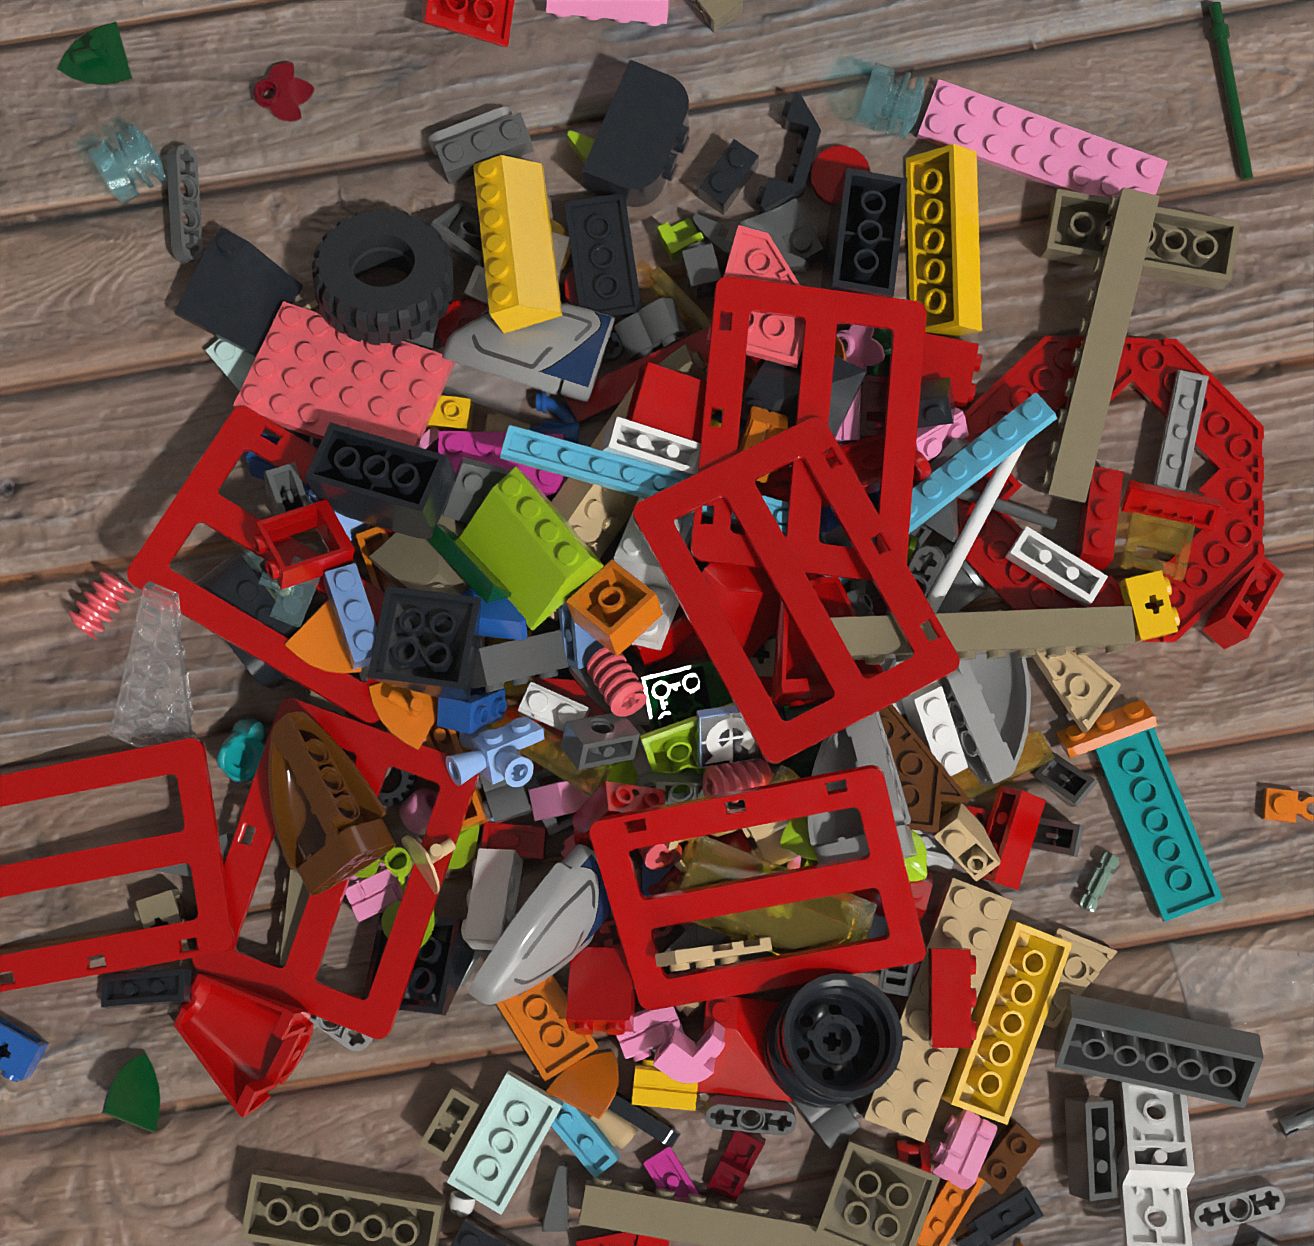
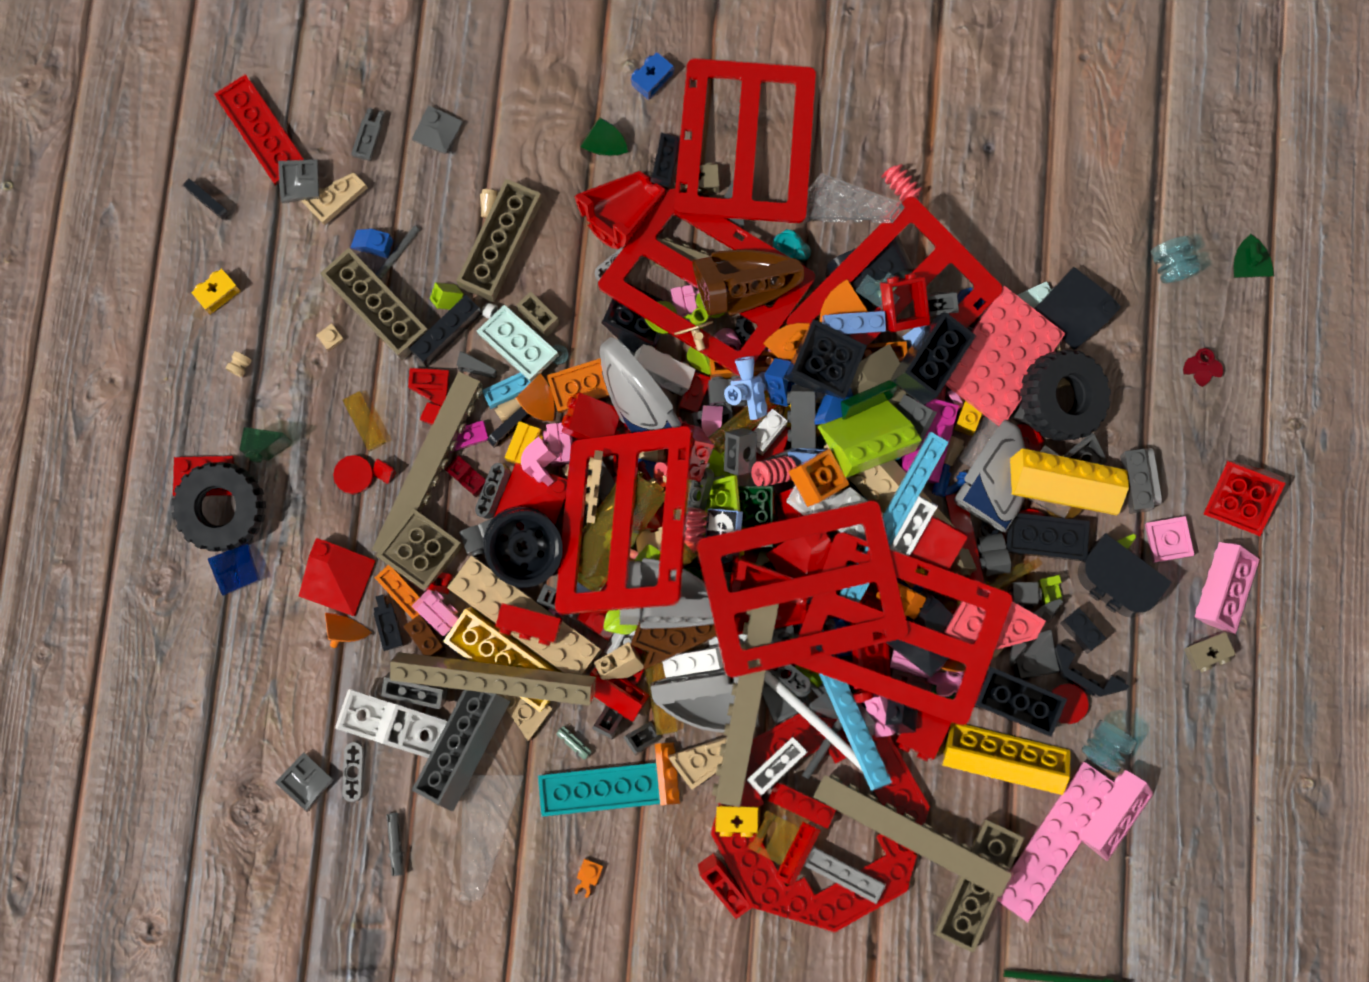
camera: 105 degrees right, 5 degrees down
(183, 167) = (1144, 286): dark grey beam -> none
(502, 1061) = (560, 360): none -> clear light blue plate
(559, 84) = (1169, 539): none -> bright pink plate
(984, 71) = (1116, 814): none -> bright pink slope
(1048, 1030) = (493, 678): none -> dark tan brick

